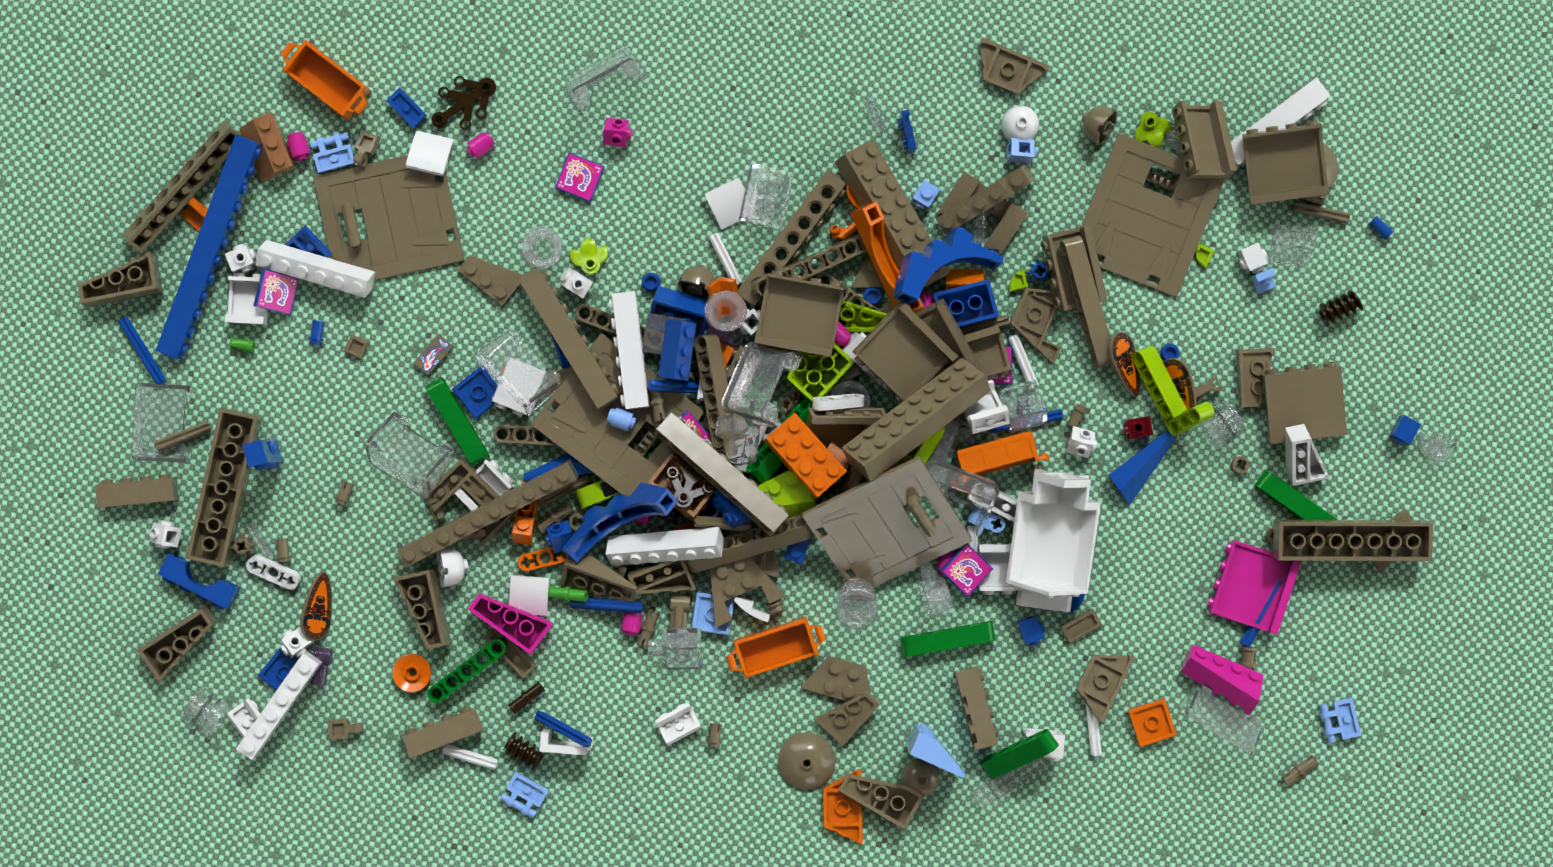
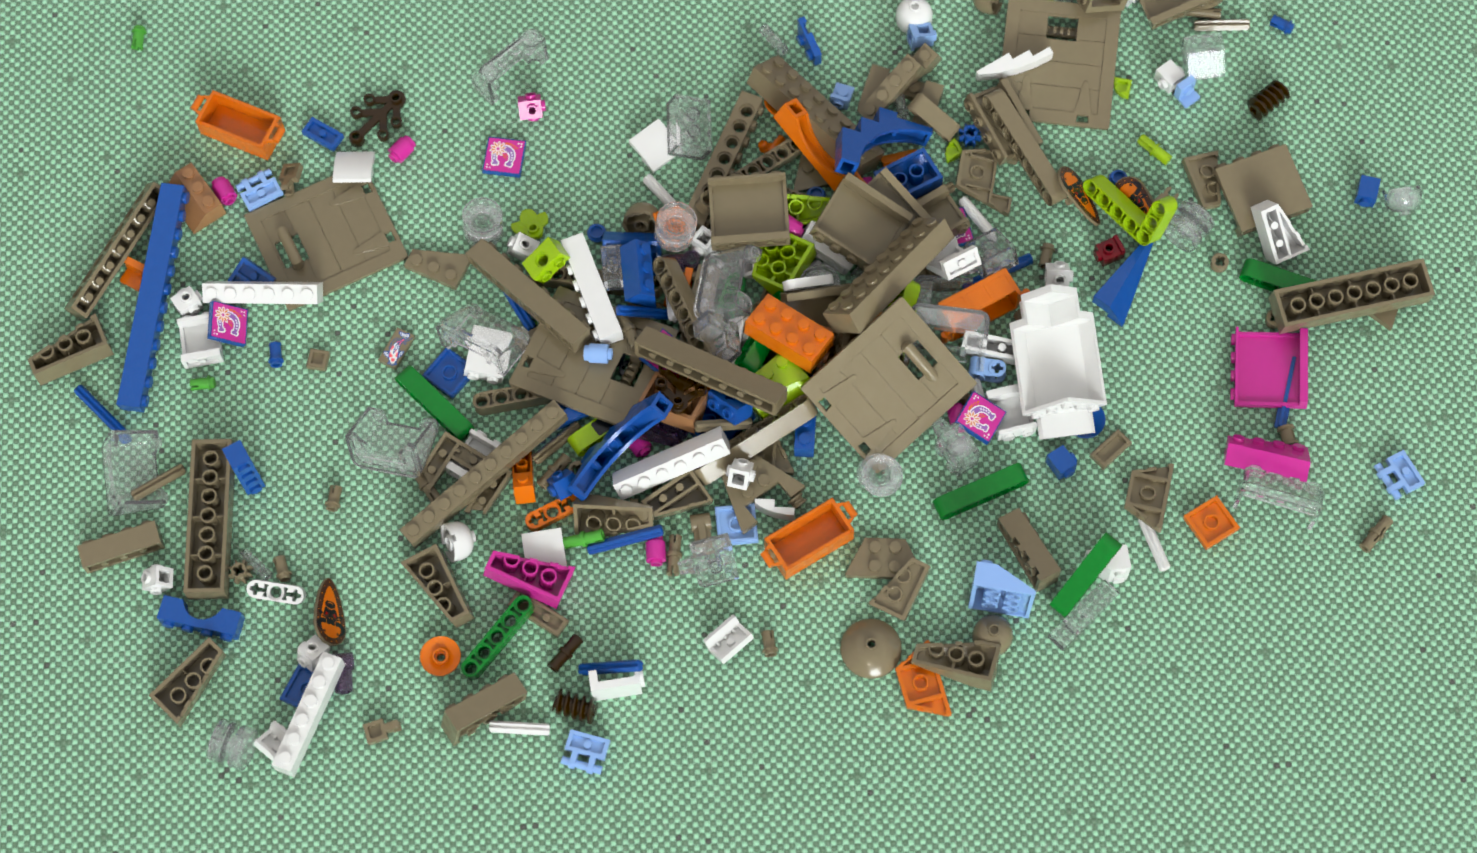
camera: 10 degrees left, 20 degrees down
(583, 312) = (537, 263): none -> lime brick
(729, 574) = (740, 473): none -> white brick
(1008, 245) = (933, 117): none -> dark tan beam
(1095, 210) = (1008, 66): none -> white slope
(1214, 331) = (1154, 149): none -> lime axle

